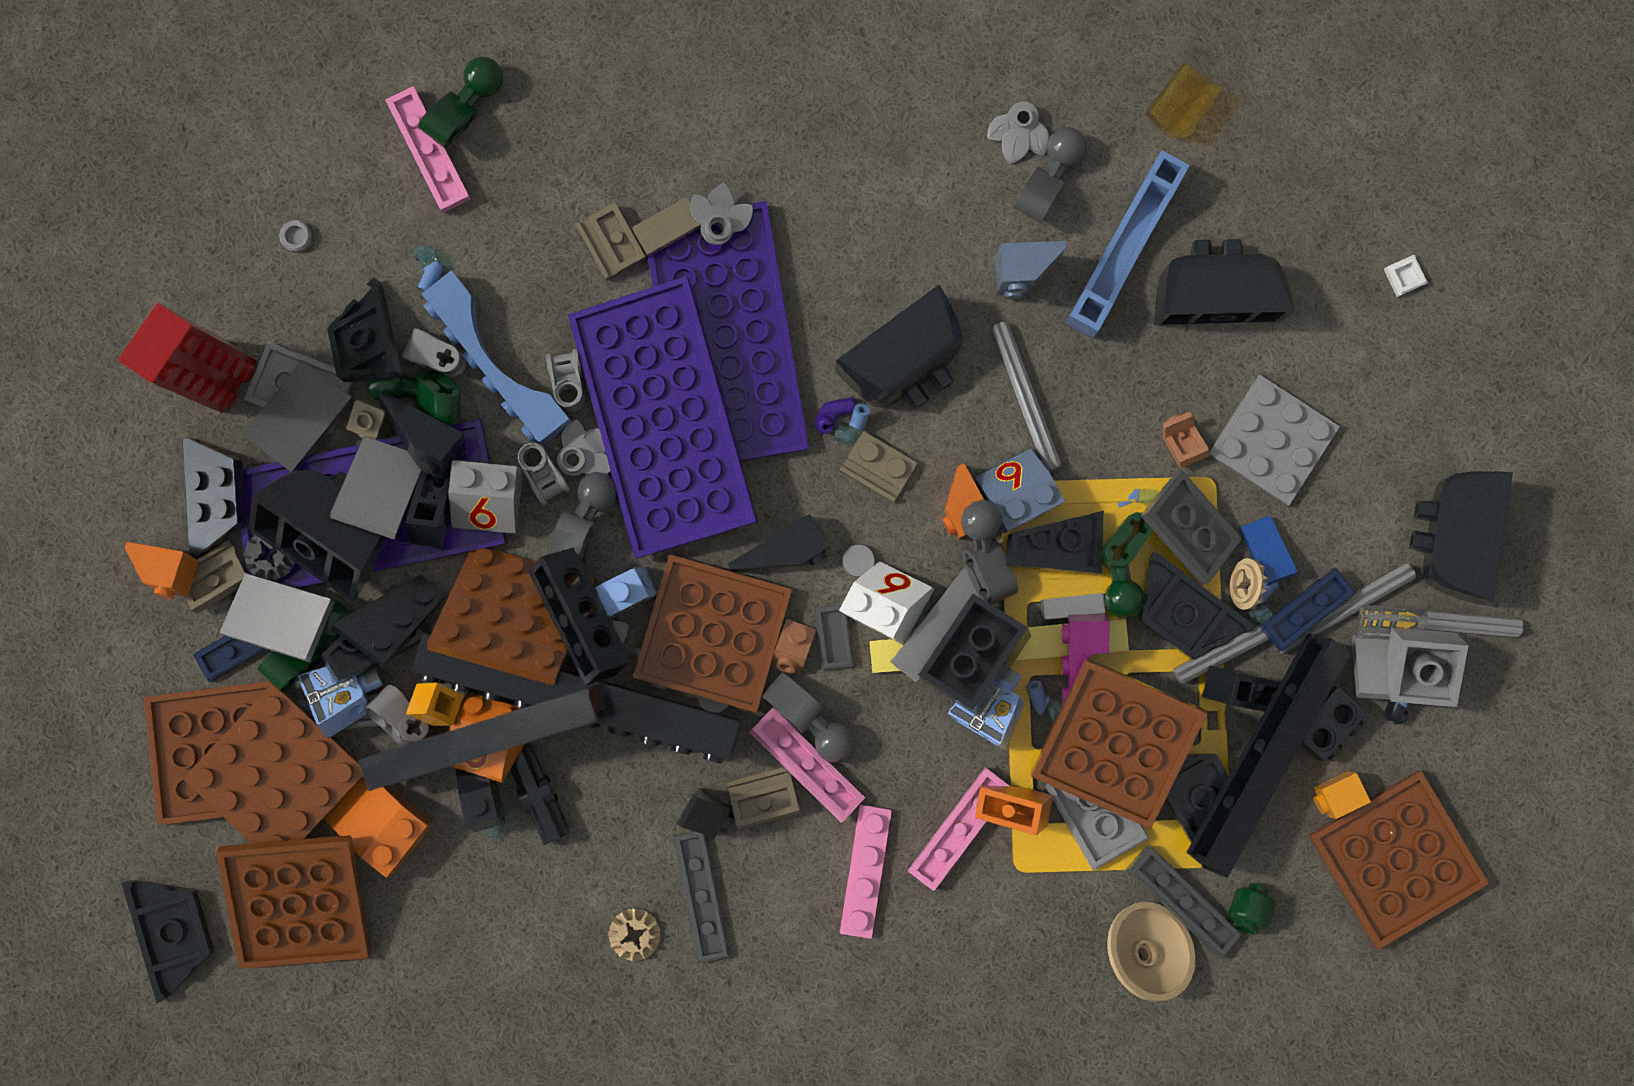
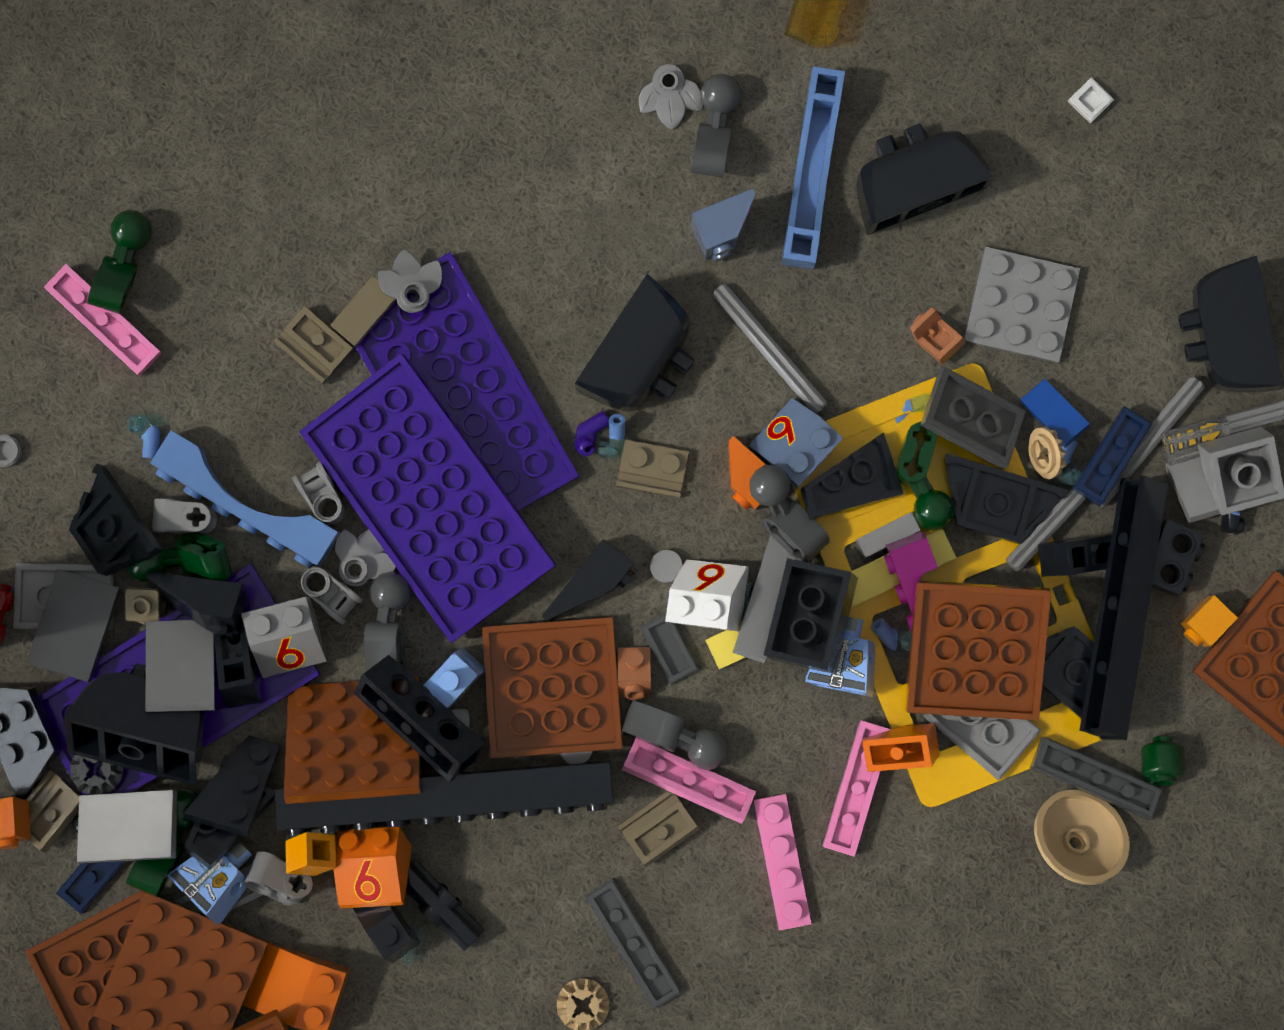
camera: 20 degrees left, 0 degrees up
(484, 737) = (371, 867): black tile -> none
(706, 814) = (610, 863): black slope -> none

